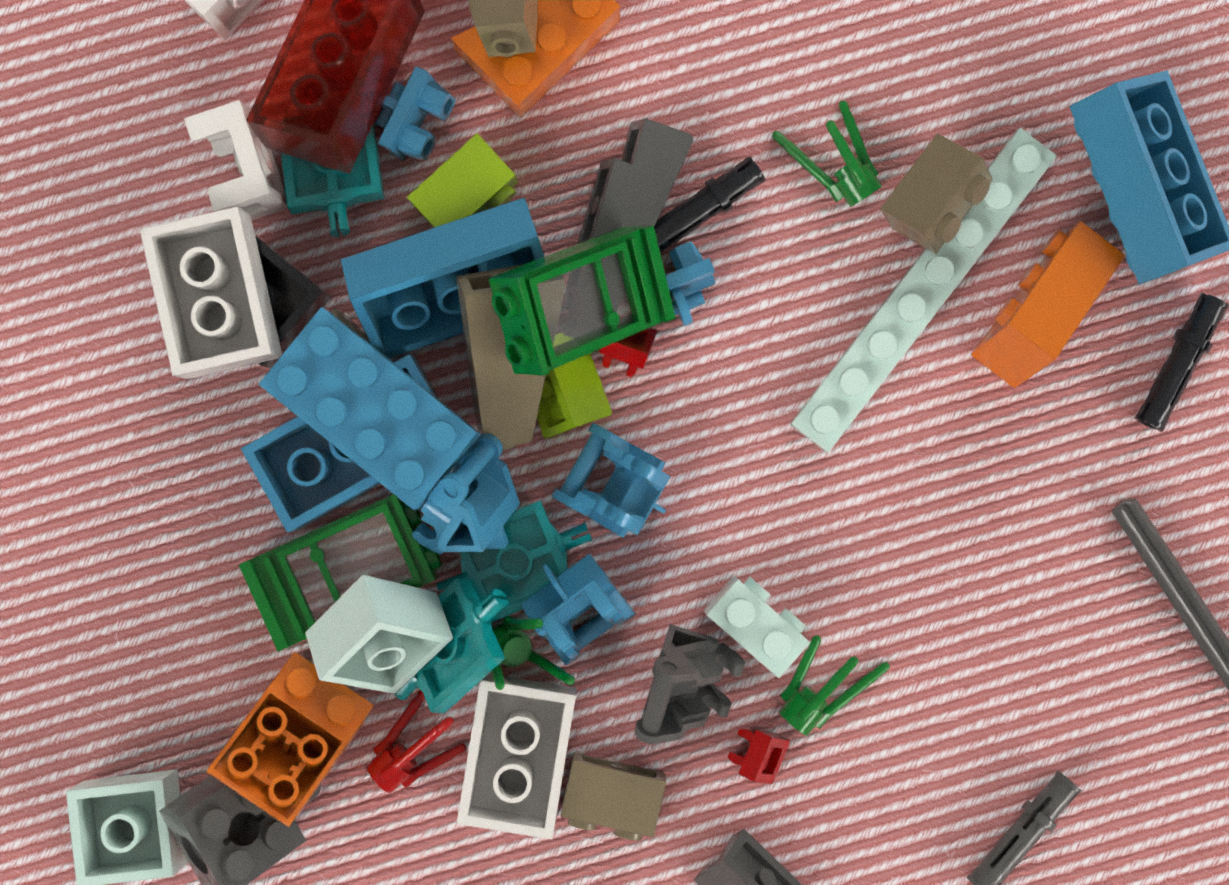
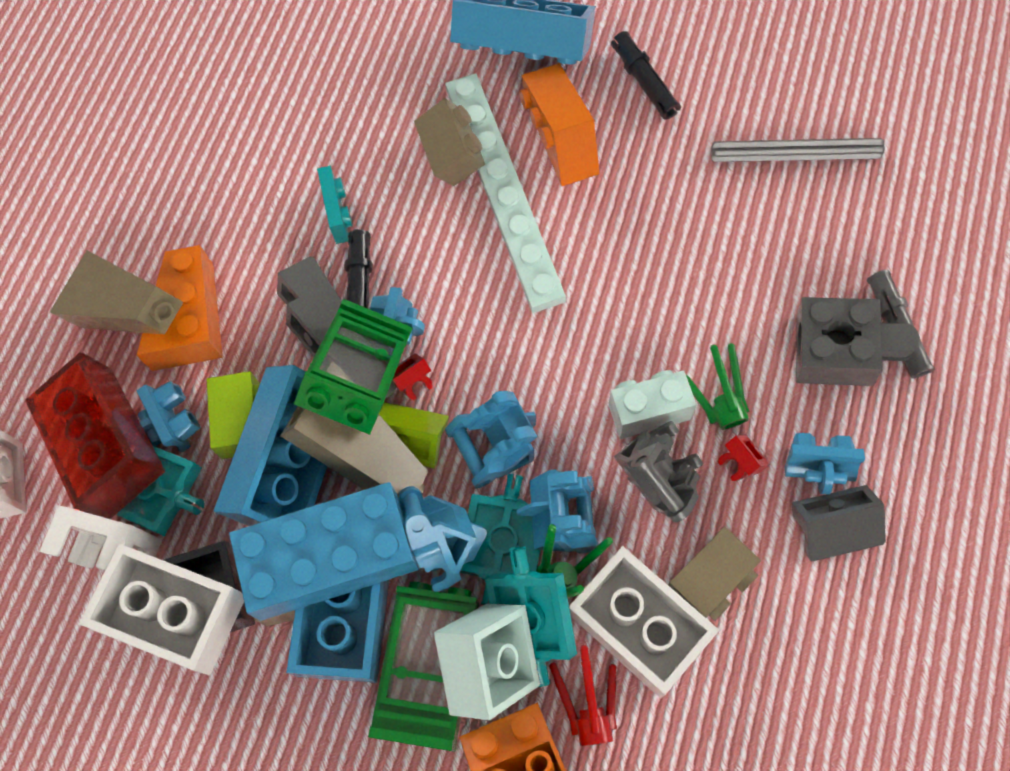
camera: 45 degrees left, 20 degrees down
(789, 99) = (338, 216): none -> teal plate
(801, 843) = (824, 464): none -> dark azure hips
(855, 179) = (407, 183): green plant -> none
(961, 792) = (856, 353): none -> dark grey brick

